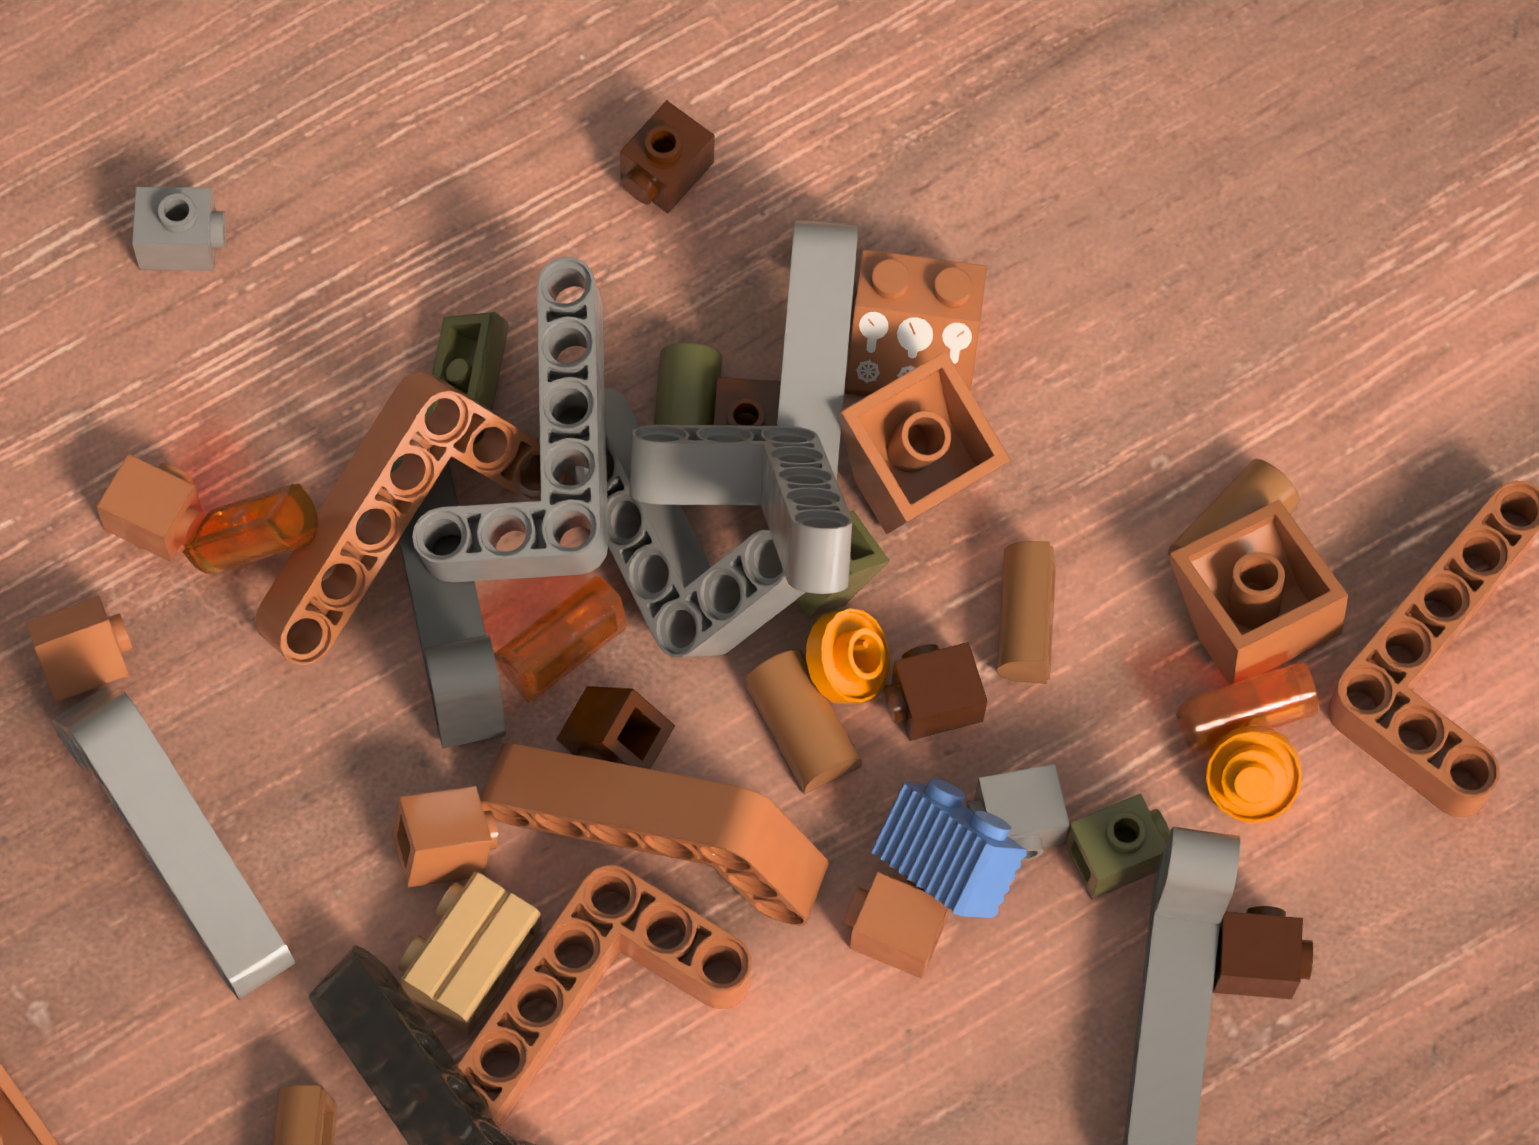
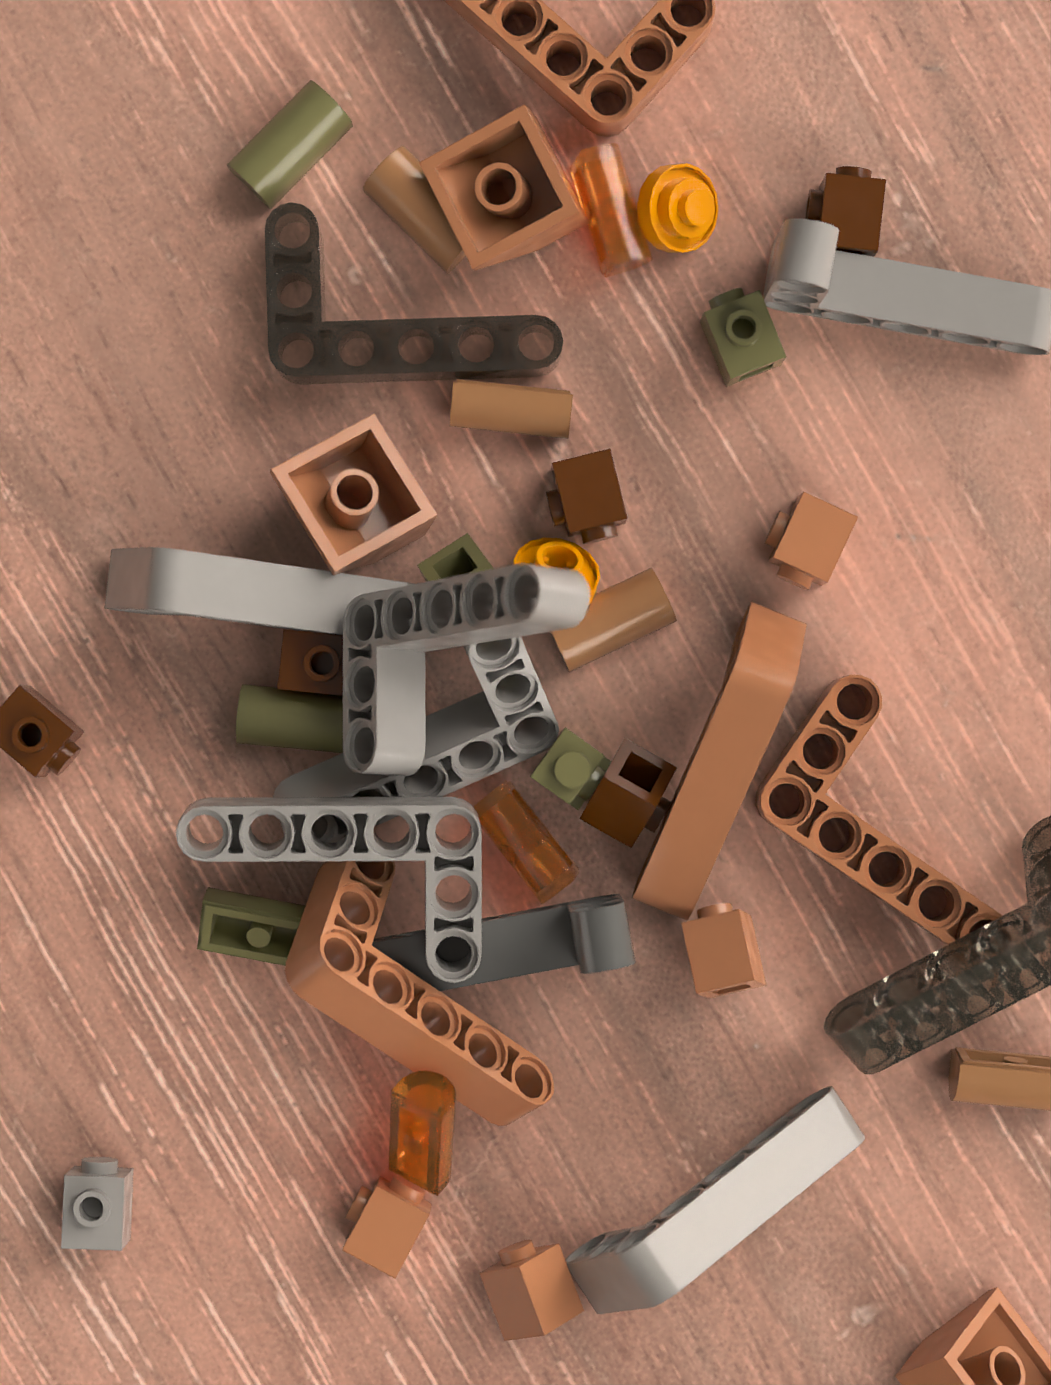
camera: 85 degrees left, 20 degrees up
(469, 951) = (827, 928): tan brick -> none
(645, 666) = (571, 769): none -> olive brick
(910, 314) = (220, 496): nougat slope -> none
(949, 848) = (754, 491): medium blue brick -> none
(1029, 803) = (710, 425): light grey brick -> none
(1091, 484) = (387, 335): none -> clear smoke beam
(1291, 390) = (291, 144): none -> olive brick

